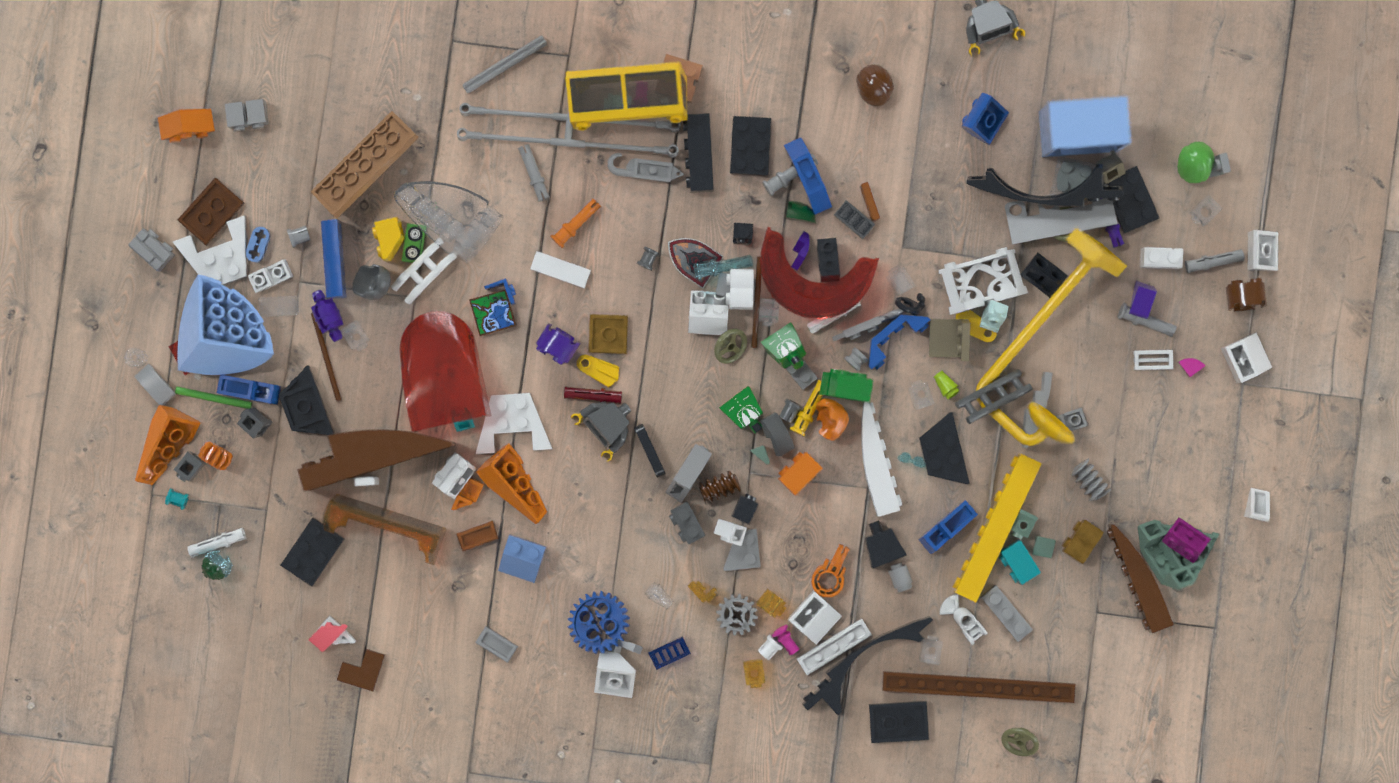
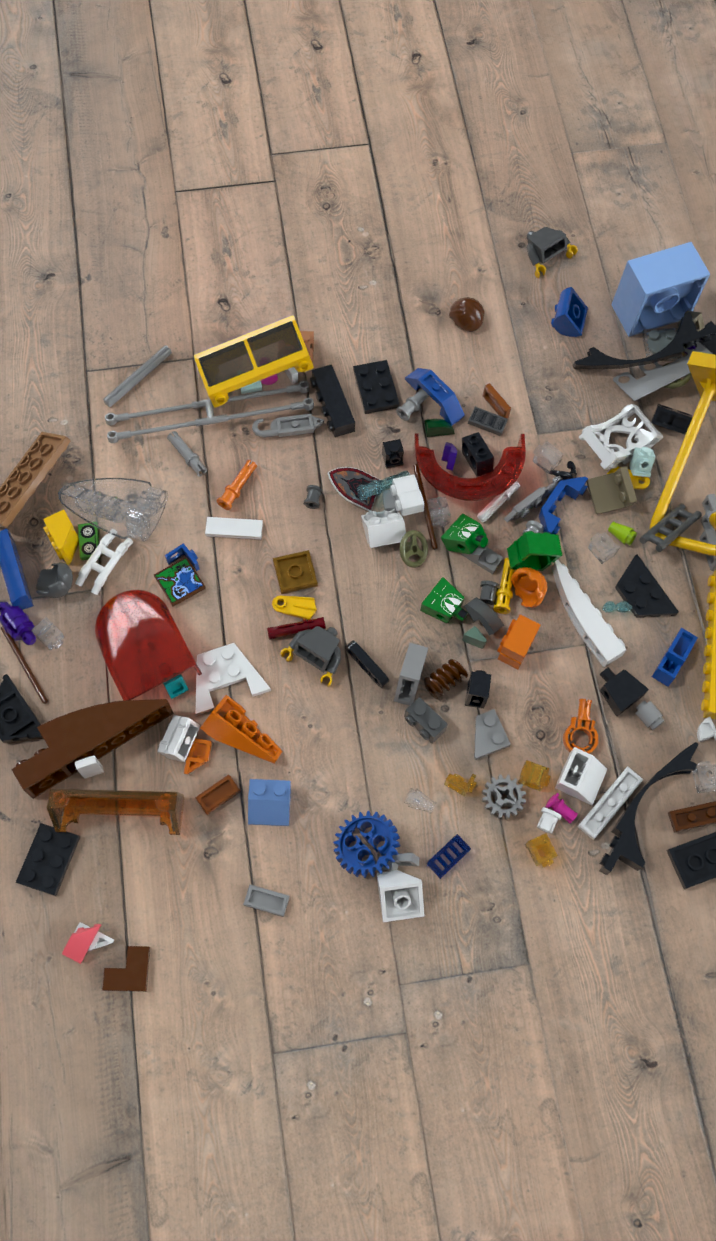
camera: 15 degrees left, 20 degrees down
(557, 343) = (249, 587): dark purple brick -> none
(730, 532) = (470, 715): white brick -> none

